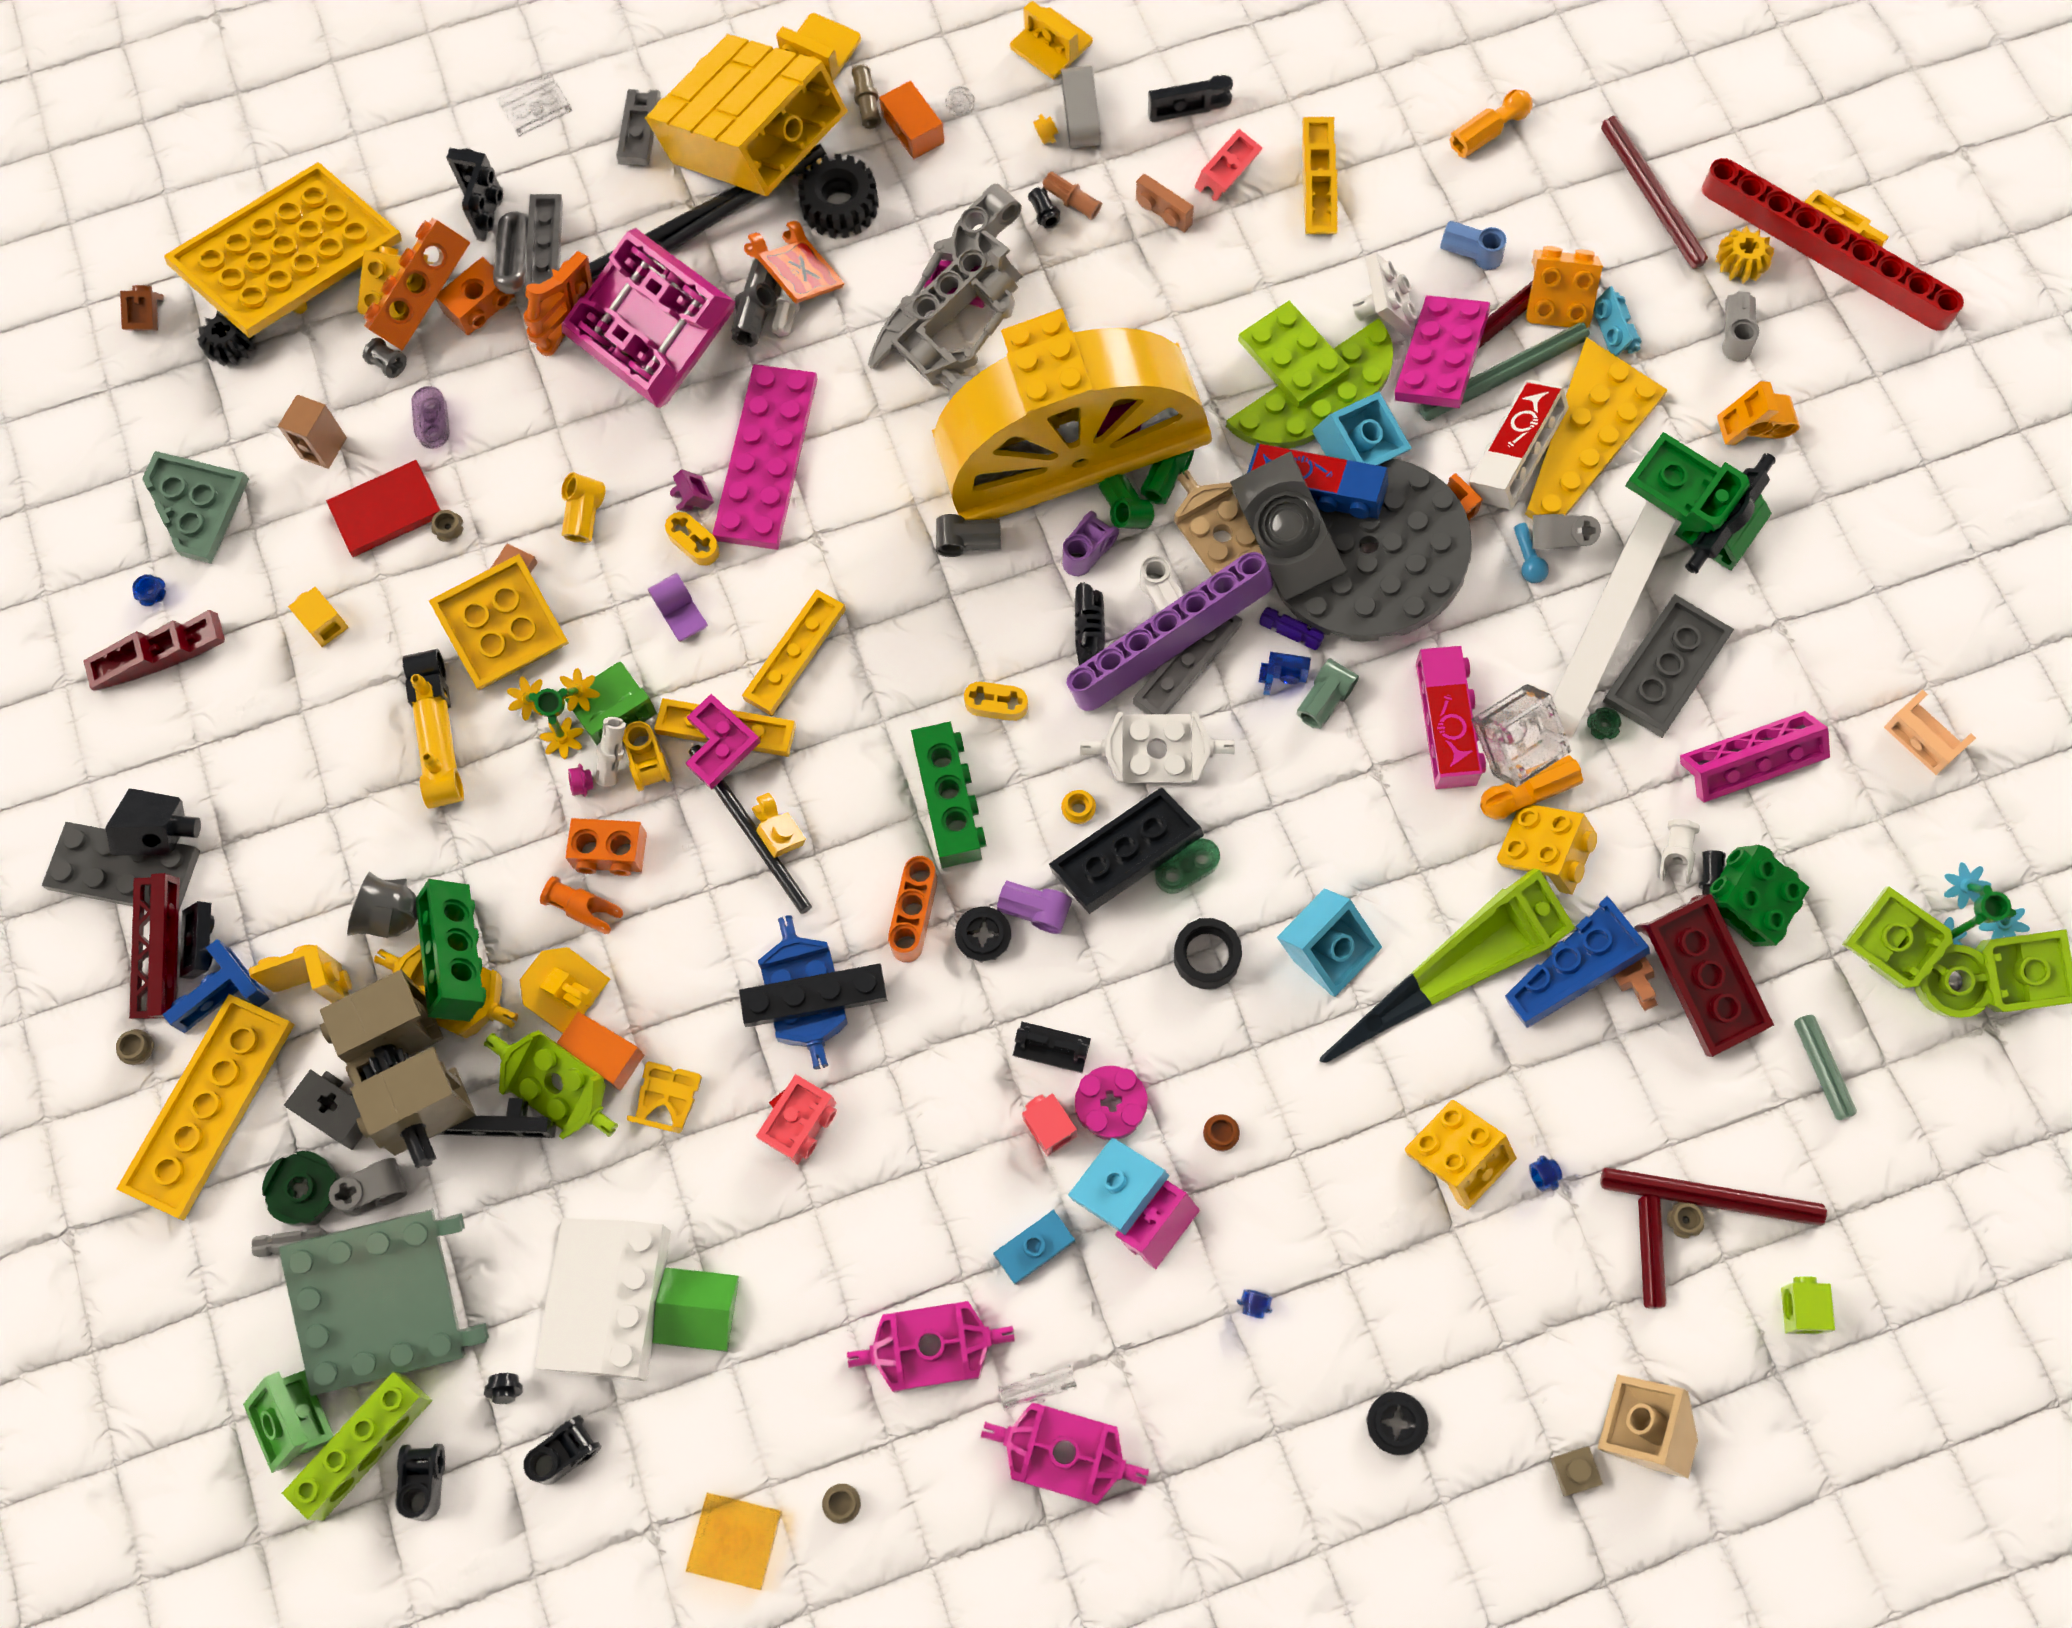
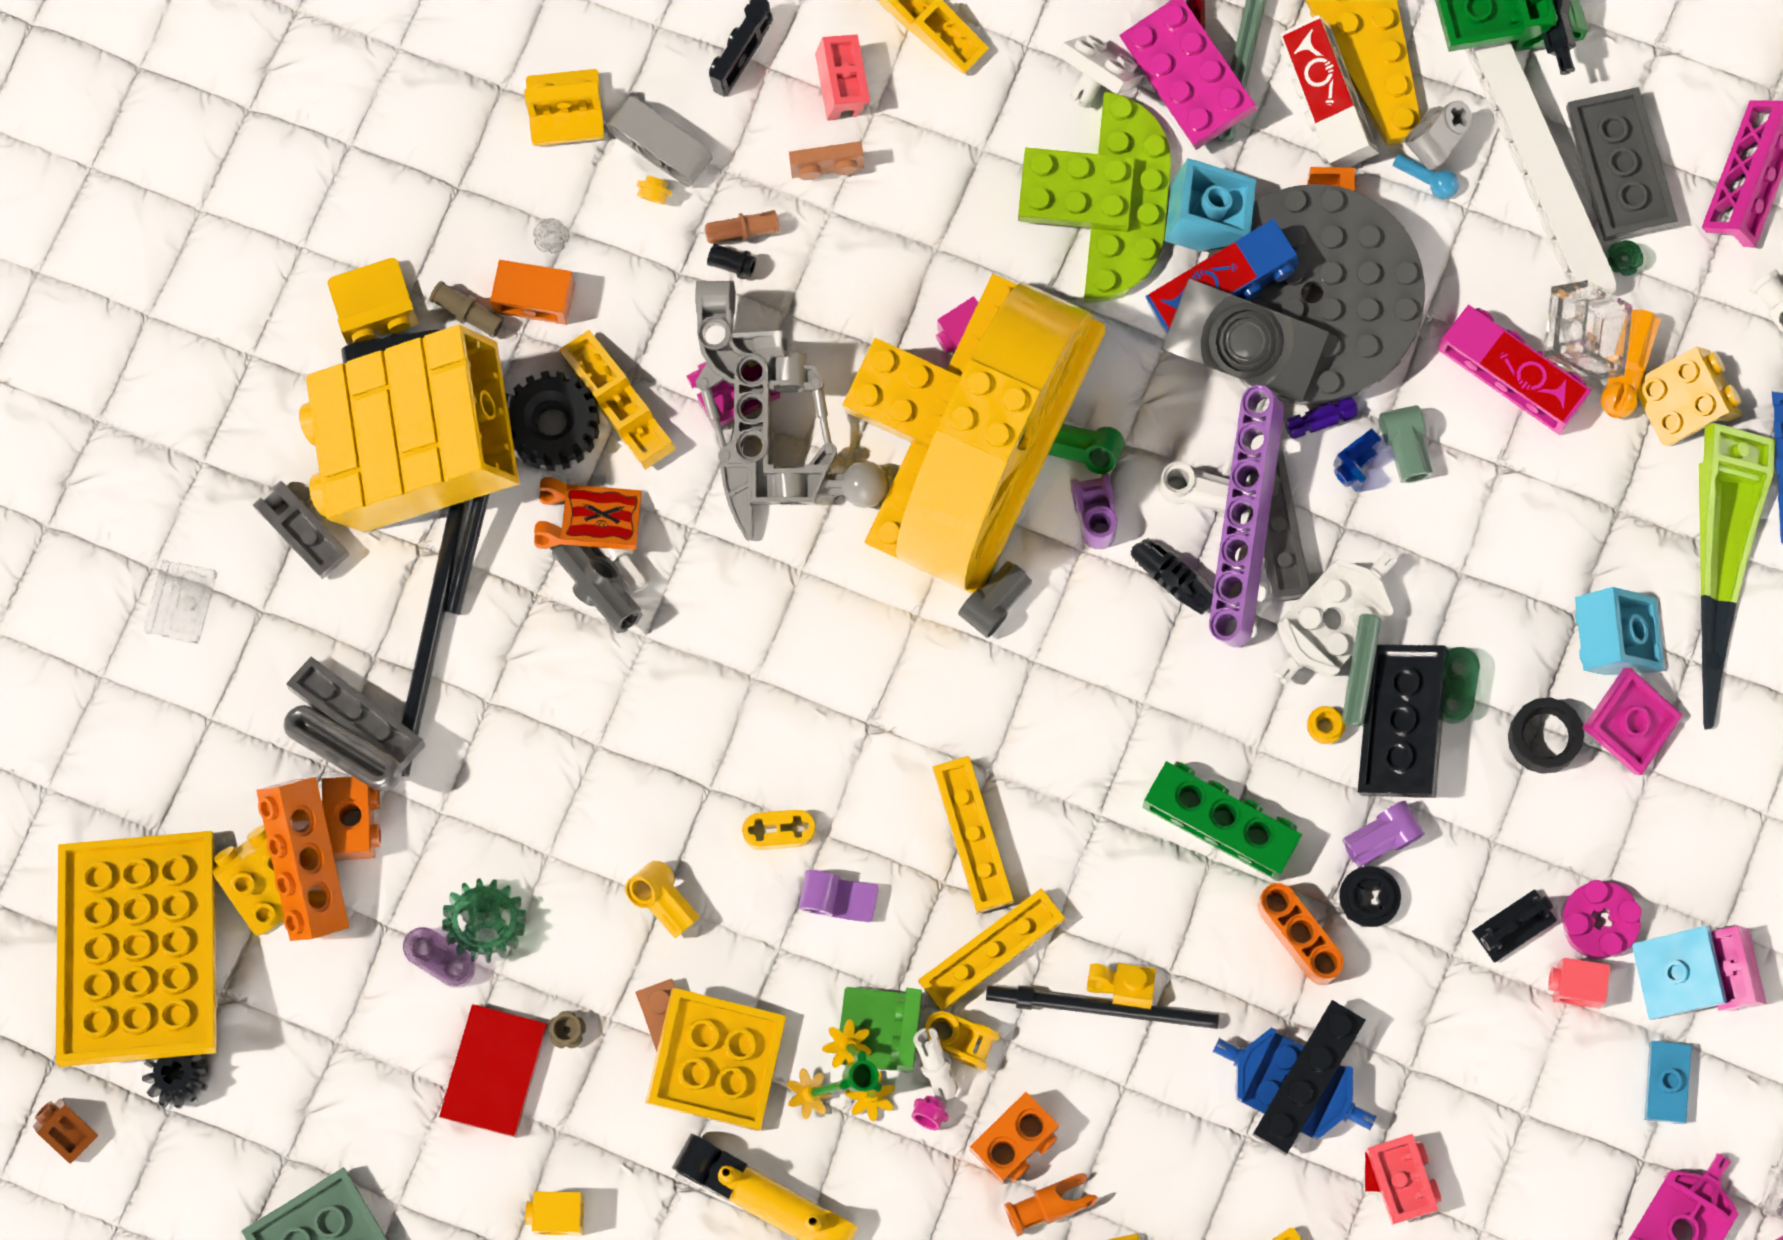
camera: 50 degrees left, 5 degrees up
(312, 431) = (366, 1072): medium nougat panel -> none
(384, 357) = (336, 949): dark grey bush -> none
(474, 419) = (485, 936): none -> clear green gear
(478, 186) = (226, 713): black bracket -> none
(558, 297) = (442, 752): orange plate -> none
(648, 317) = (538, 686): dark pink piece -> none
(692, 490) = (735, 790): magenta tile -> none
(727, 744) = (1017, 956): dark pink plate -> none
(765, 457) = (754, 701): dark pink plate -> none
(889, 221) = (617, 399): none -> yellow slope
(996, 701) = (1163, 702): yellow beam -> none
(1135, 793) = (1361, 669): none -> sand green axle
(1164, 476) = (1093, 398): green piece -> none
(1213, 510) = (1162, 376): tan plate -> none
(1221, 1132) = (1700, 856): dark orange plate -> none
(1273, 1001) = (1632, 721): none -> dark pink tile

